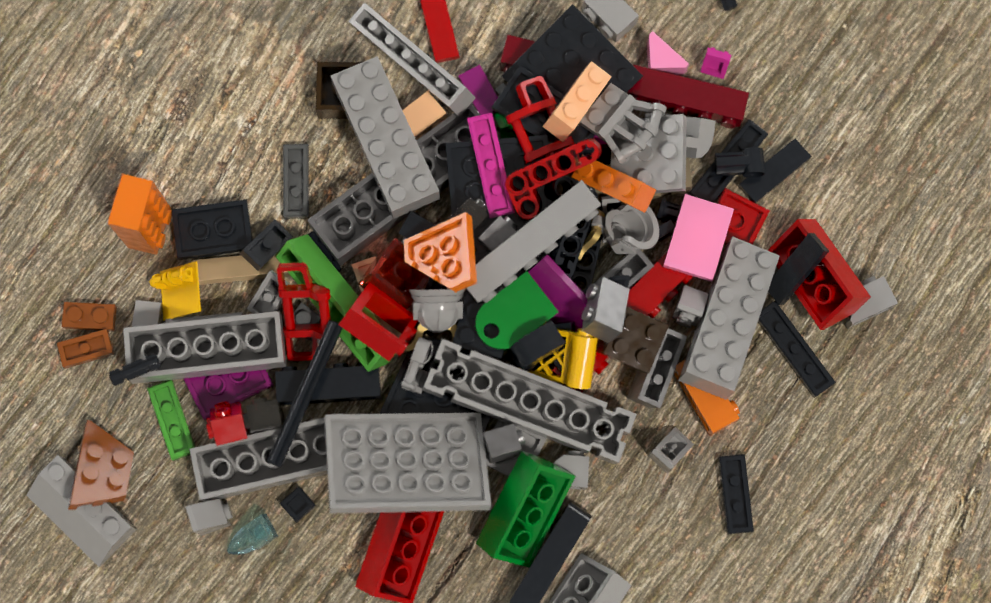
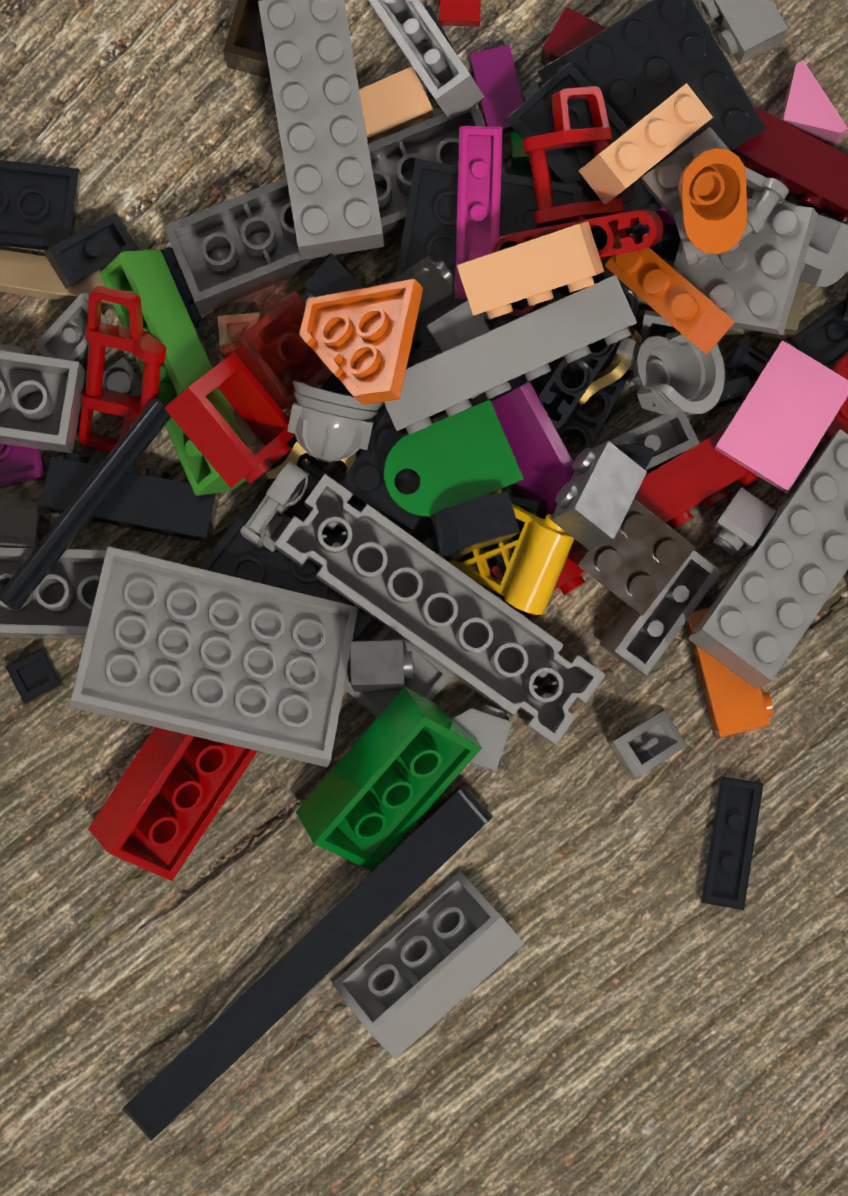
camera: 20 degrees right, 5 degrees up
(295, 181) = (166, 160): dark grey tile -> none
(532, 190) = (531, 270): none -> light nougat brick
(626, 123) = (714, 200): none -> orange piece

